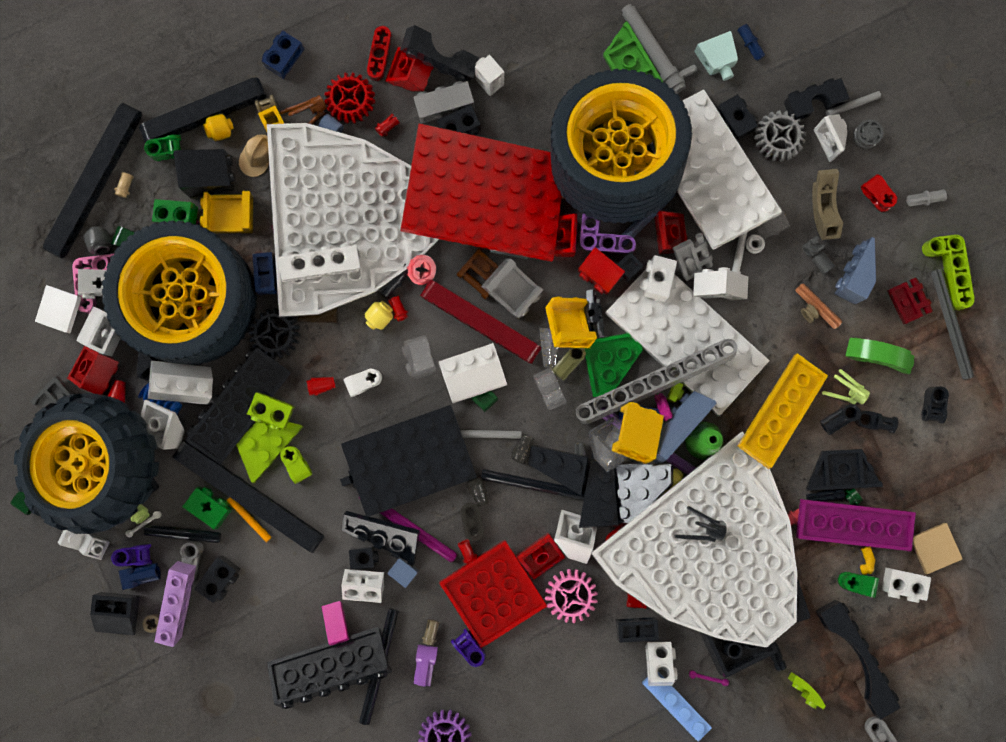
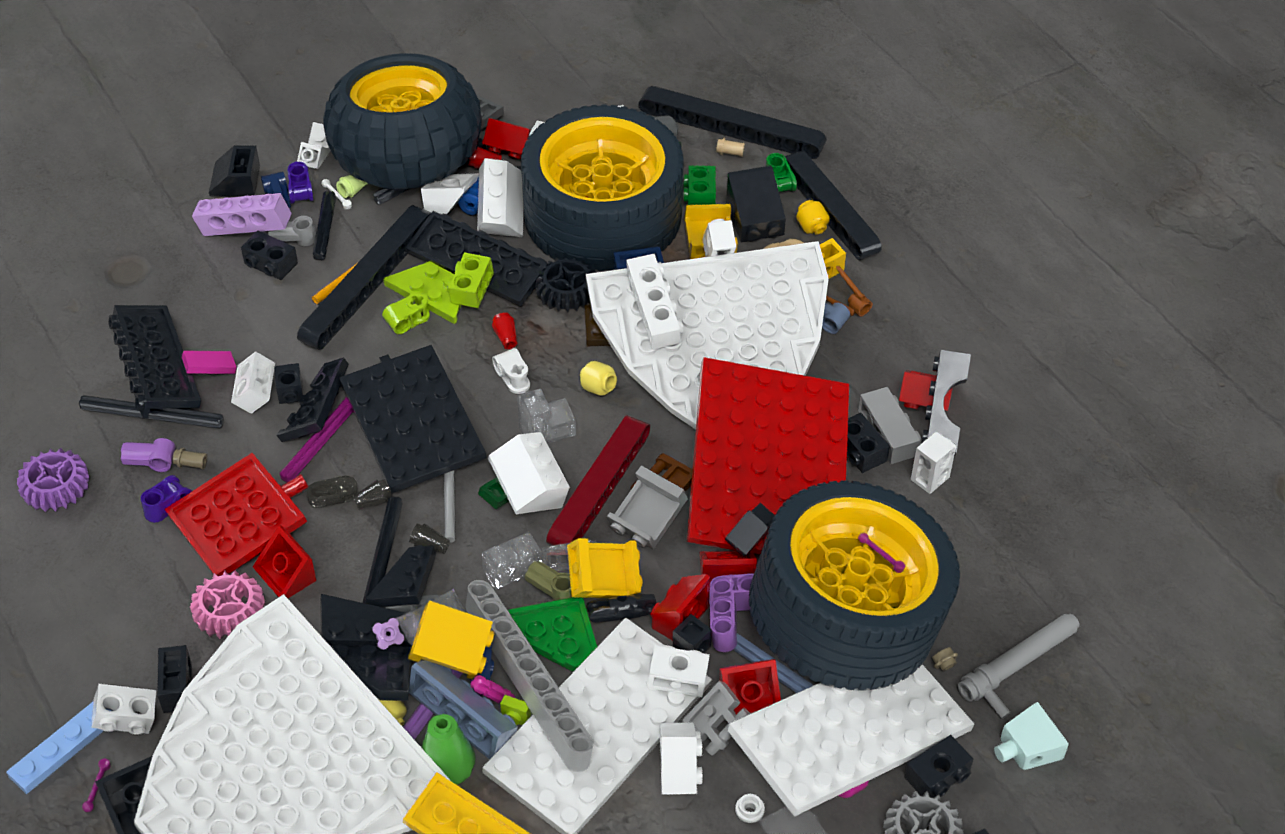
camera: 85 degrees right, 35 degrees down
(58, 309) = (577, 99): white tile -> none
(197, 506) = (353, 240): green brick -> none
(258, 204) = (719, 238): none -> white brick
(266, 103) = (851, 259): dark tan bush -> none
(287, 56) = (915, 267): dark blue brick -> none
(340, 110) = (875, 332): red gear -> none
(386, 41) = (925, 352): red beam -> none
(388, 124) = (847, 372): red pin -> none
(391, 286) = (642, 393): black pin -> none
(398, 309) = (608, 399): red pin -> none
(402, 572) = (264, 421): sand blue panel -> none
(427, 263) = (654, 407): coral gear -> none
(552, 214) = (750, 529): none -> black slope
(574, 541) = (305, 593): white slope -> none
(611, 112) = (898, 566): none -> magenta hinge
(612, 482) = (384, 640): none -> lavender plate
(628, 53) = (995, 629): bright green wing -> none
(714, 529) = (309, 743): black plant -> none
(739, 252) = (739, 790): white bar -> none
(751, 42) = (1063, 785): dark blue axle -> none

